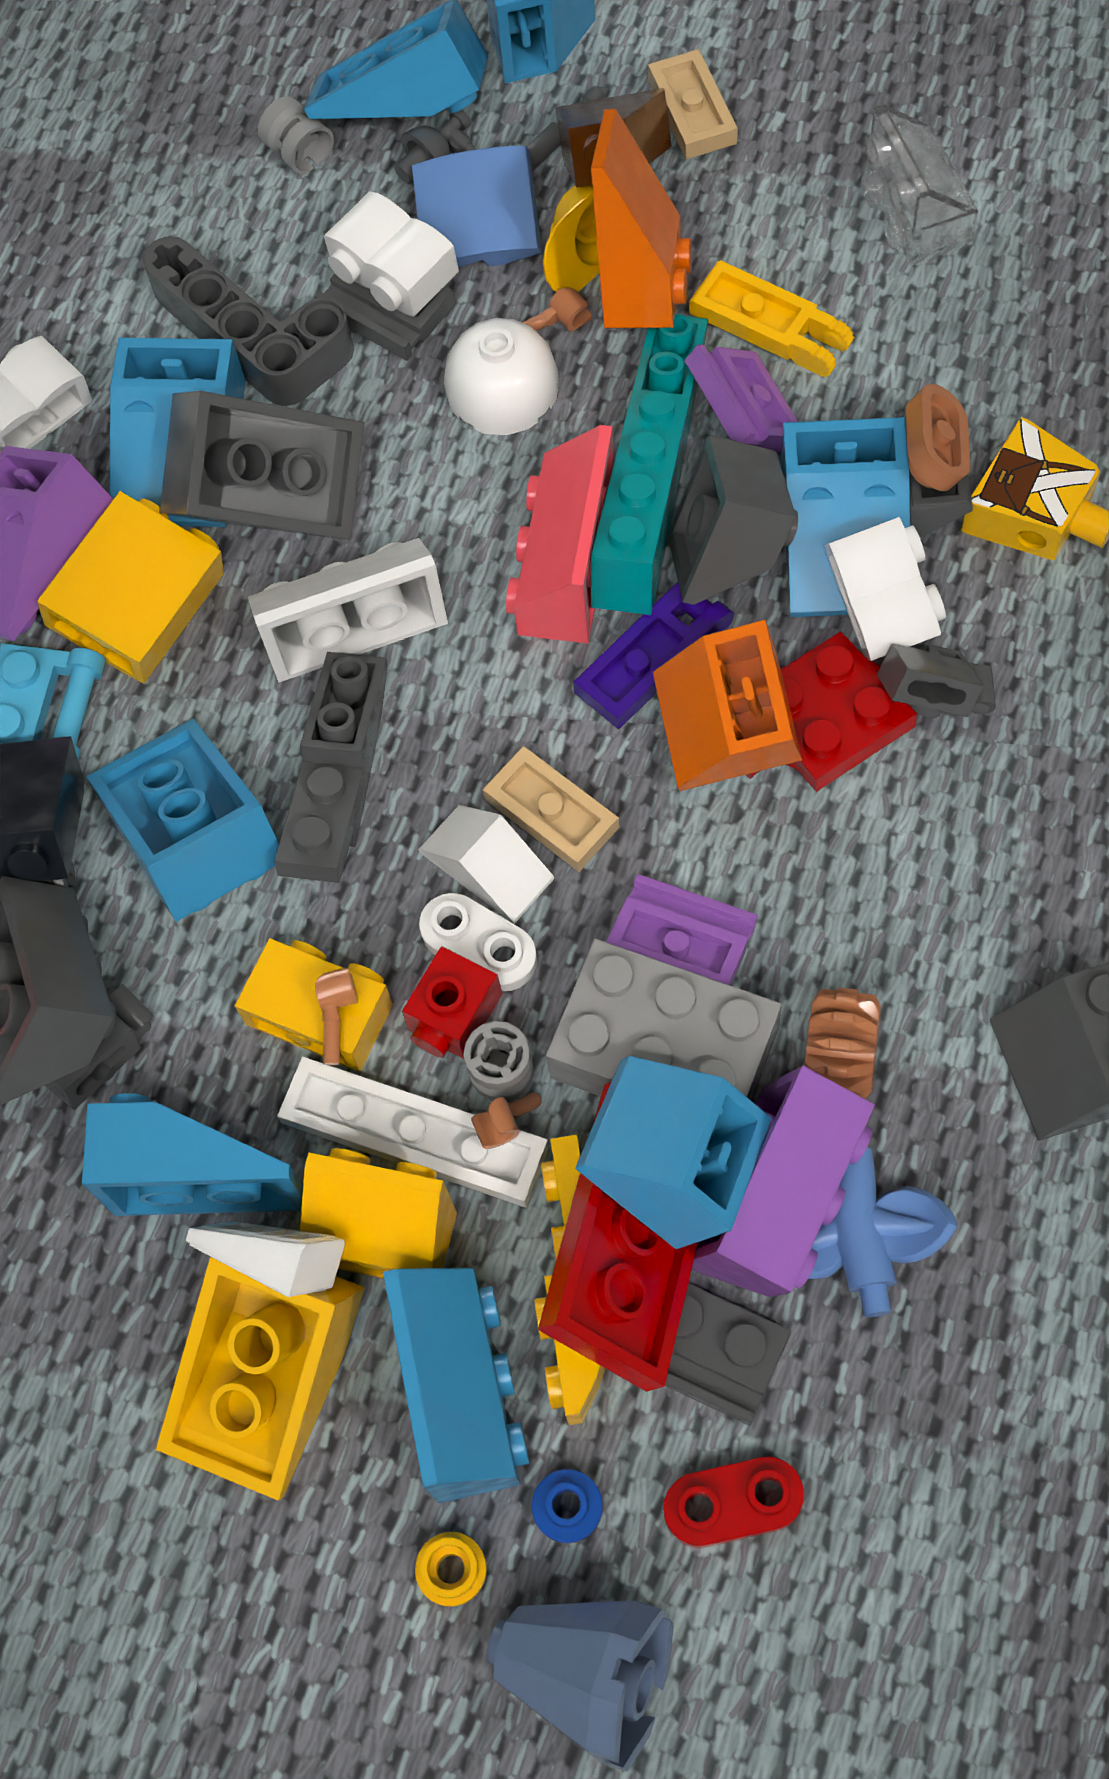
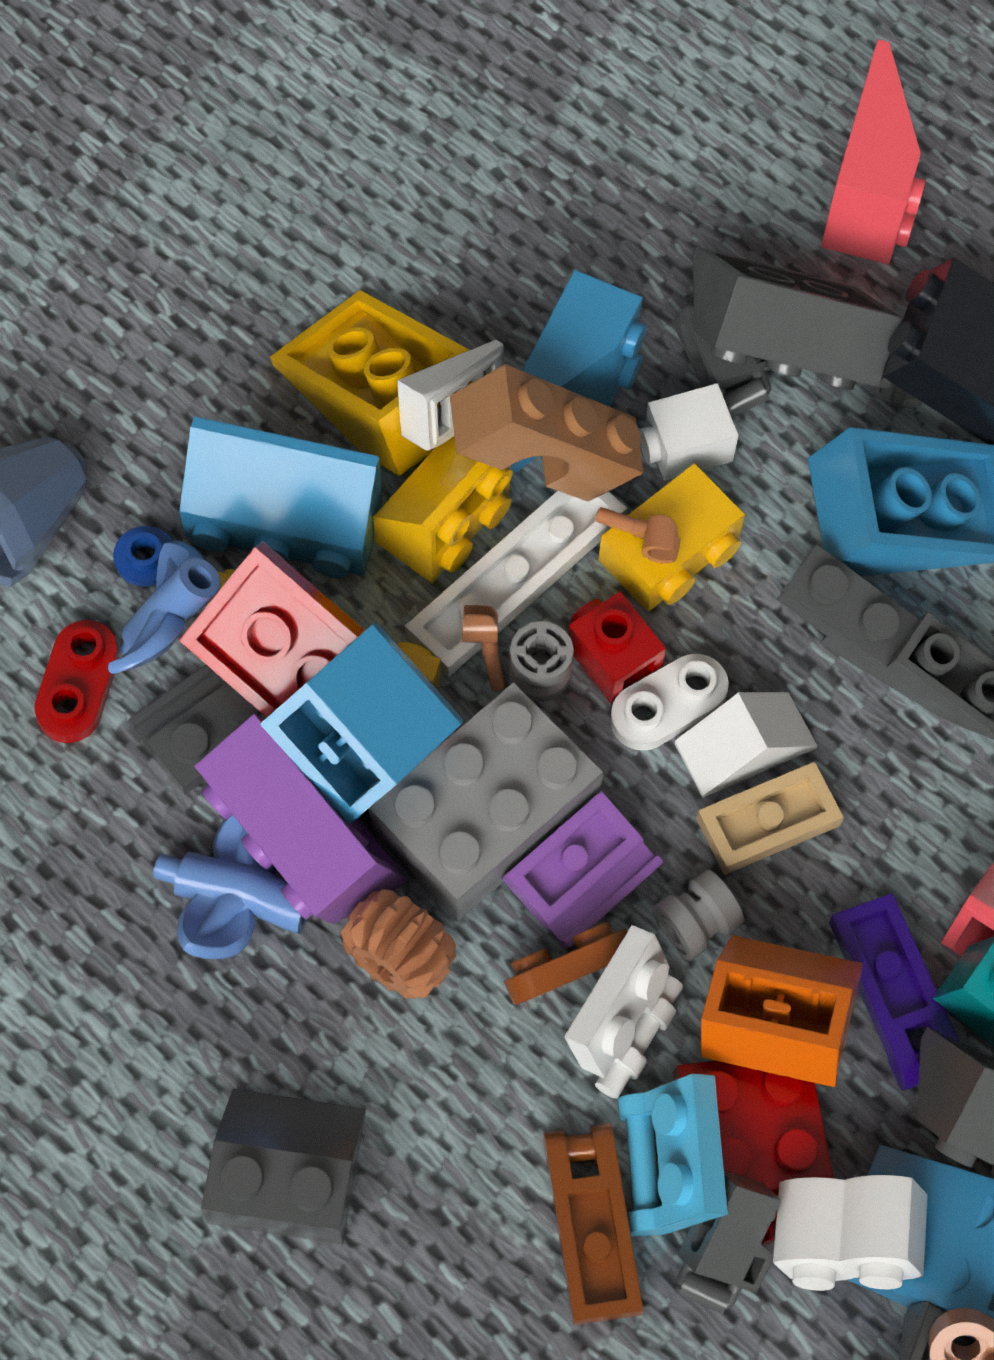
camera: 105 degrees right, 0 degrees up
(194, 1038) = (688, 431): none -> white brick
(287, 1121) = (521, 416): none -> medium nougat arch
(428, 1562) = (144, 438): yellow plate -> none
(640, 1426) = (182, 588): none -> medium blue plant
(672, 823) = (698, 914): none -> light grey wheel
(771, 828) = (624, 1012): none -> white plate
(779, 899) = (541, 973): none -> dark orange plate
(890, 730) = (688, 1155): none -> medium azure plate
(982, 790) = (593, 1227): none -> dark orange plate

